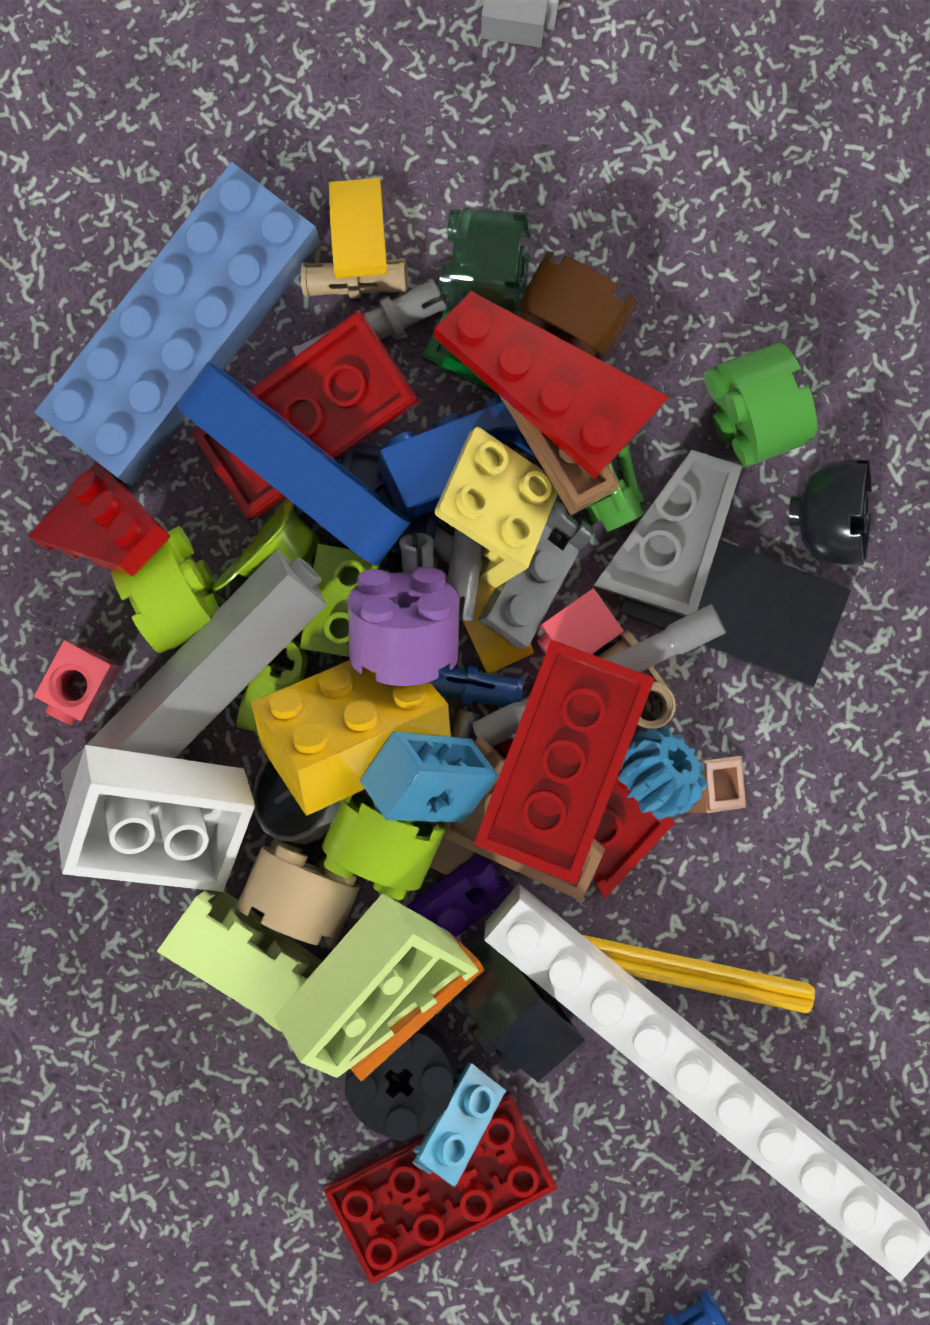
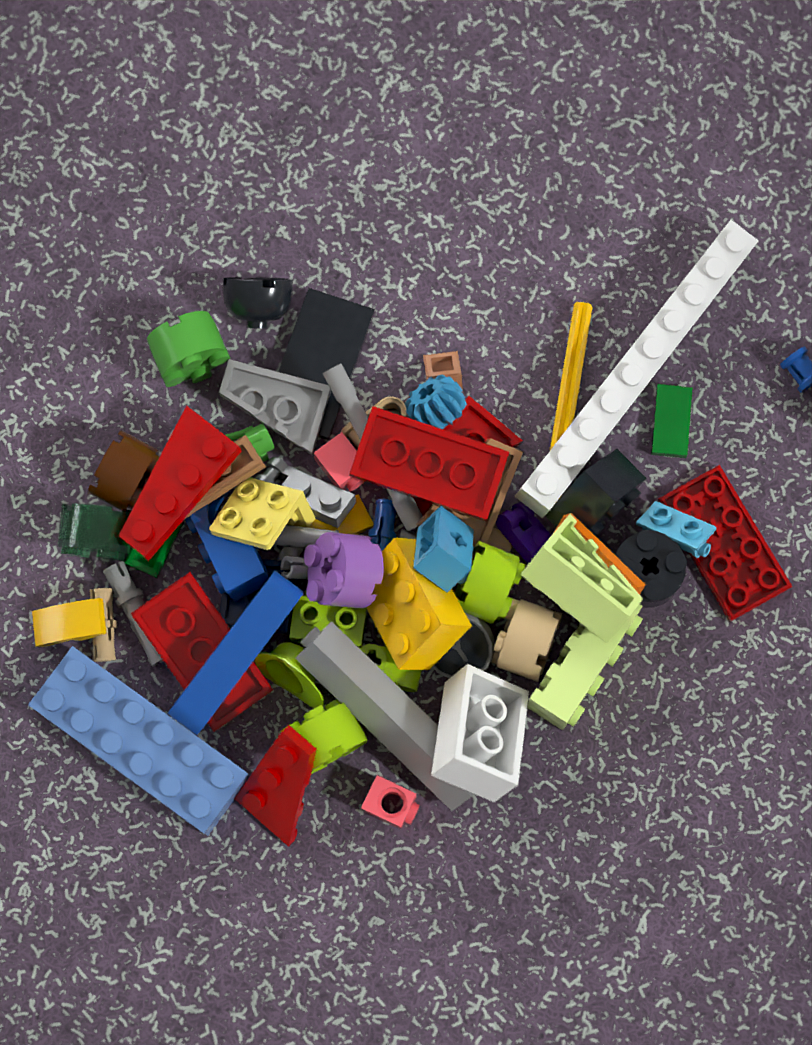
camera: 90 degrees left, 10 degrees down
(627, 1121) = (671, 421): none -> green tile

